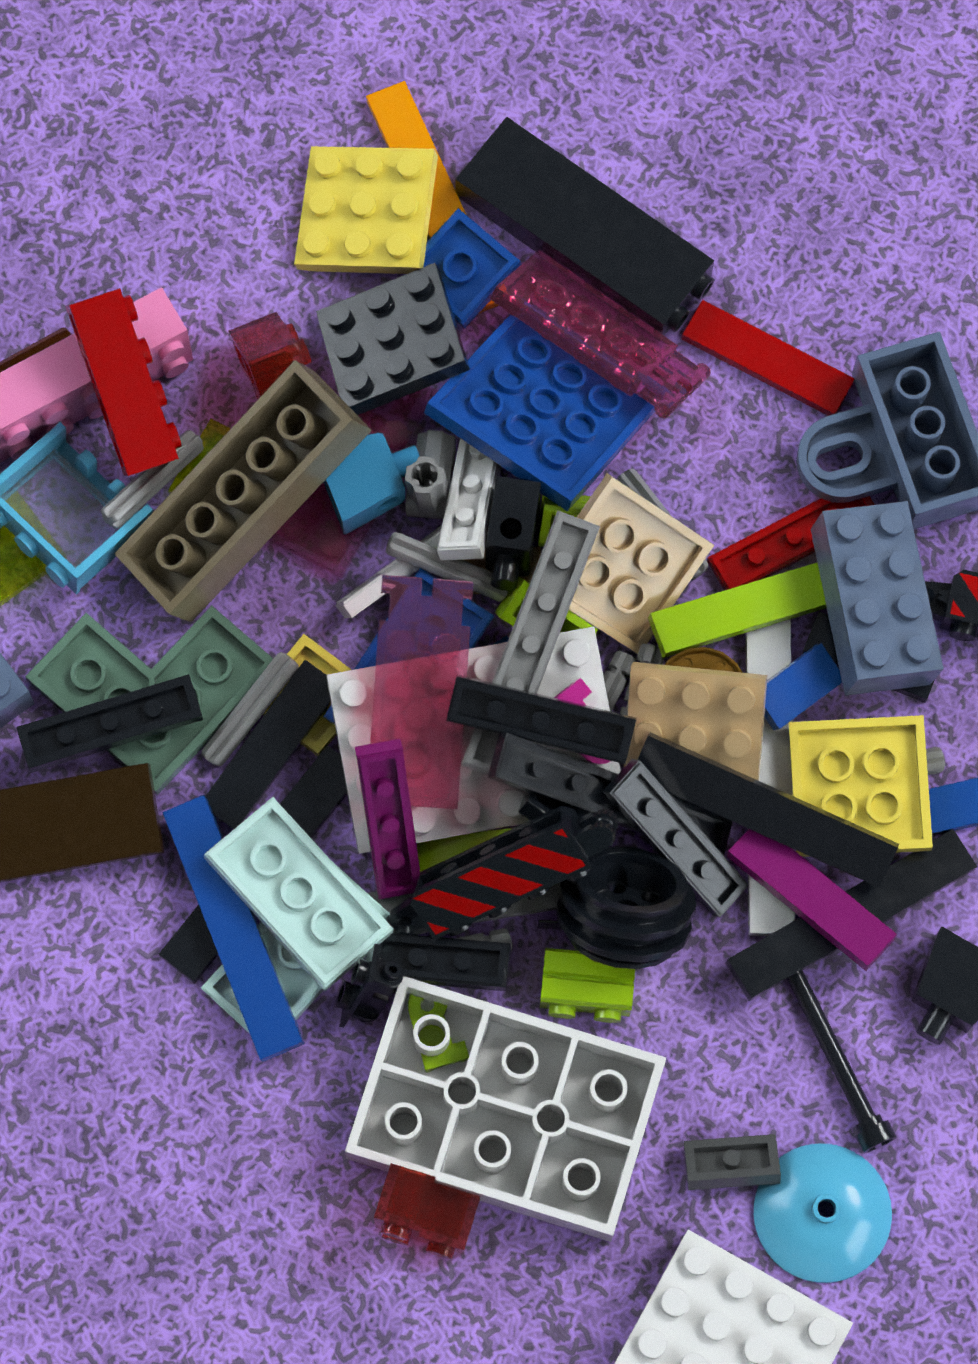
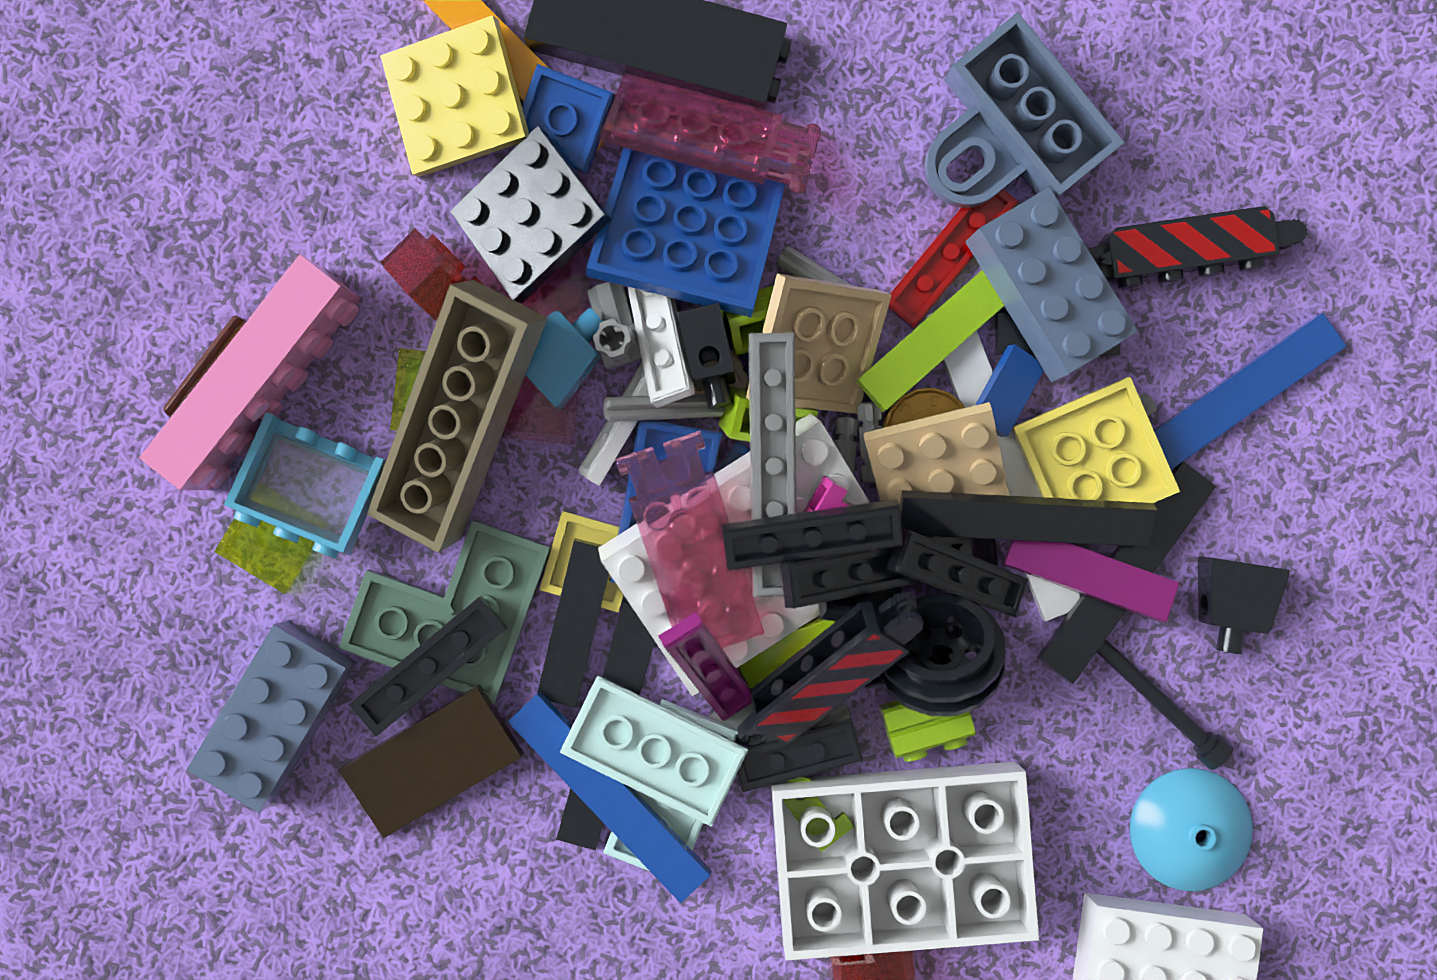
camera: 15 degrees left, 15 degrees up
(122, 381) = (300, 361): red brick -> none
(150, 482) = (371, 429): light grey axle -> none
(250, 709) = (544, 599): light grey axle -> none
(369, 989) = (745, 807): black hinge -> none
(732, 1162) = (1105, 823): dark grey plate -> none
(767, 358) = (866, 95): red tile -> none

